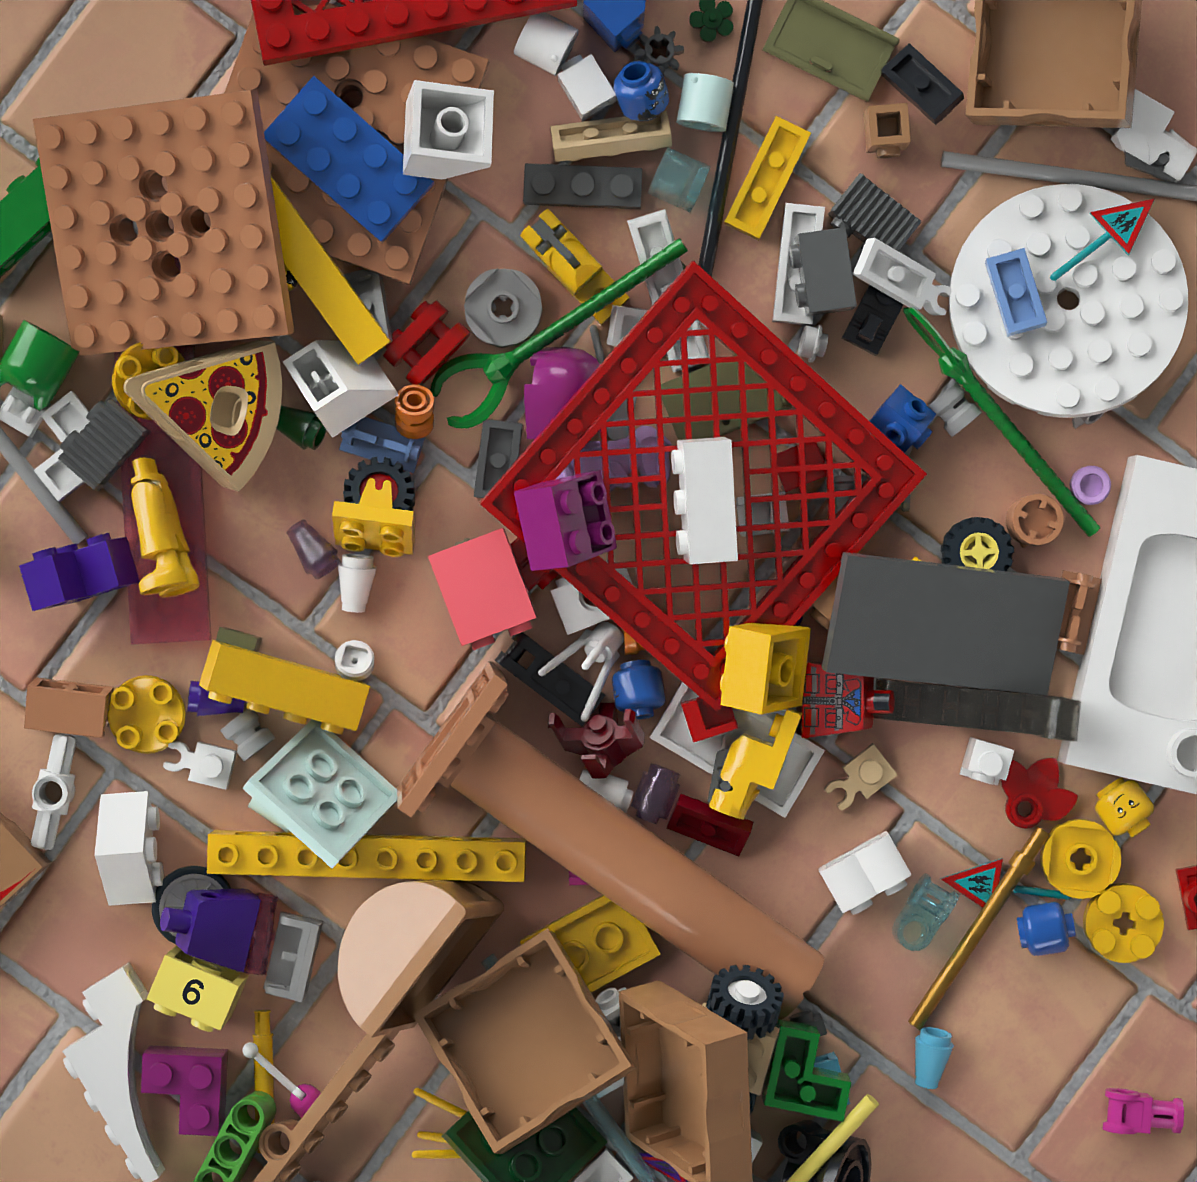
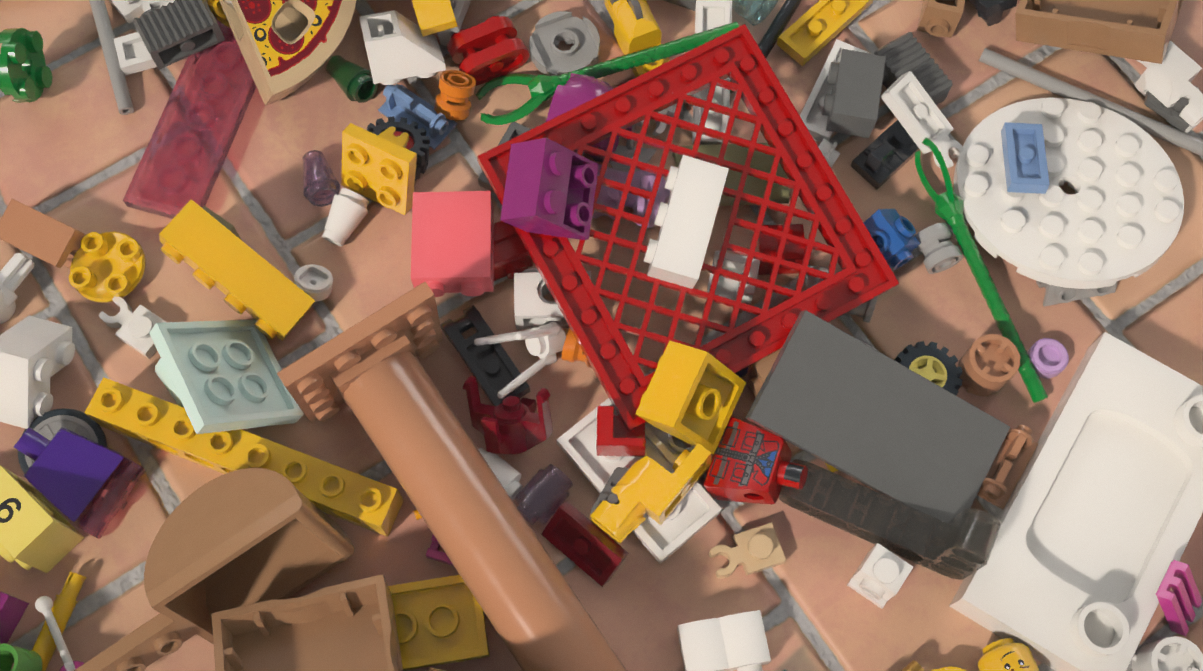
camera: 20 degrees right, 20 degrees down
(77, 574) = (100, 124): dark purple brick -> none
(160, 533) = (188, 114): yellow piece -> none
(203, 706) = (168, 273): dark purple cone -> none
(248, 734) = (186, 304): light grey wheel -> none
(293, 956) = (132, 532): light grey hinge -> none
(638, 688) = (568, 390): blue head -> none
(1039, 788) = (923, 624): red plate -> none
(1120, 224) = (1134, 139): piece -> none

